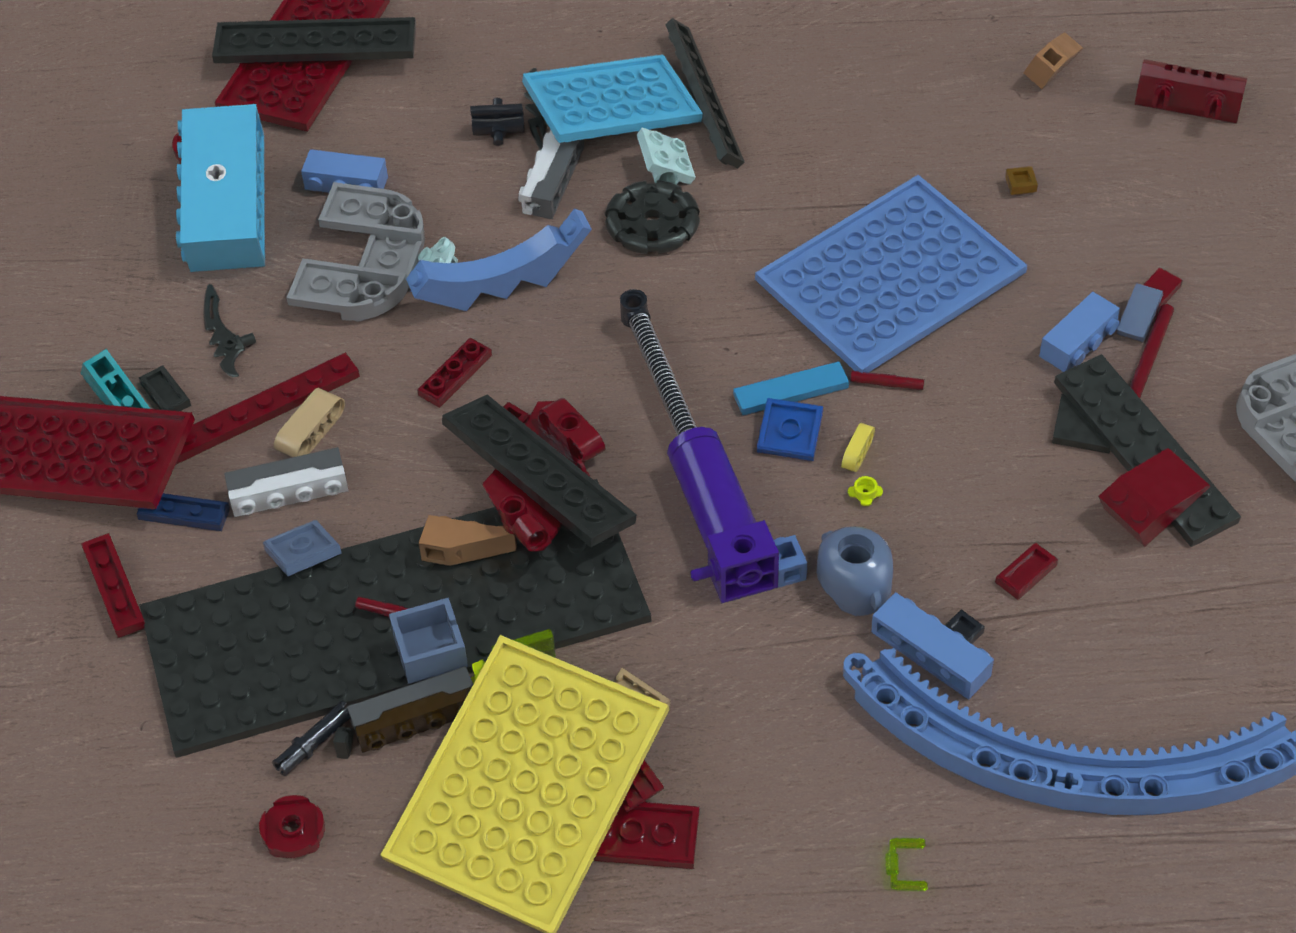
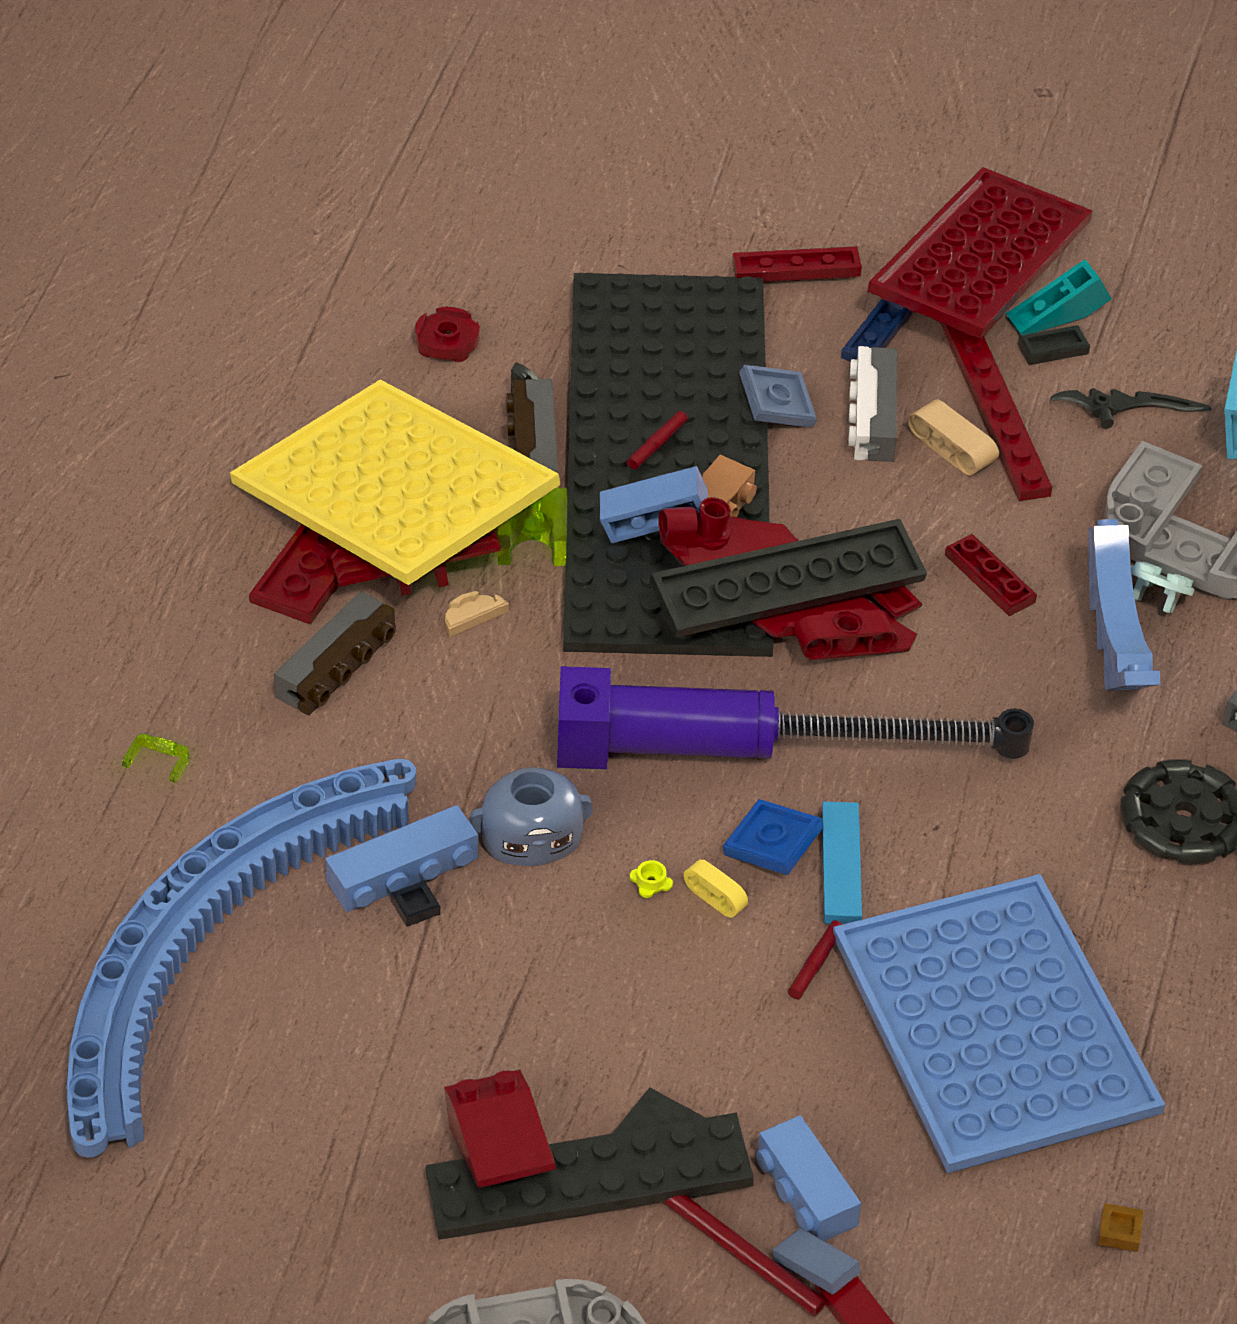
camera: 105 degrees right, 5 degrees down
(303, 746) = (533, 357): black pin -> none
(428, 640) = (593, 439): sand blue piece -> none
(497, 570) = (635, 507): none -> medium blue brick
(737, 768) = (335, 653): none -> piece
(791, 561) = (582, 766): medium blue brick -> none
(1026, 571) = (467, 992): dark red tile -> none

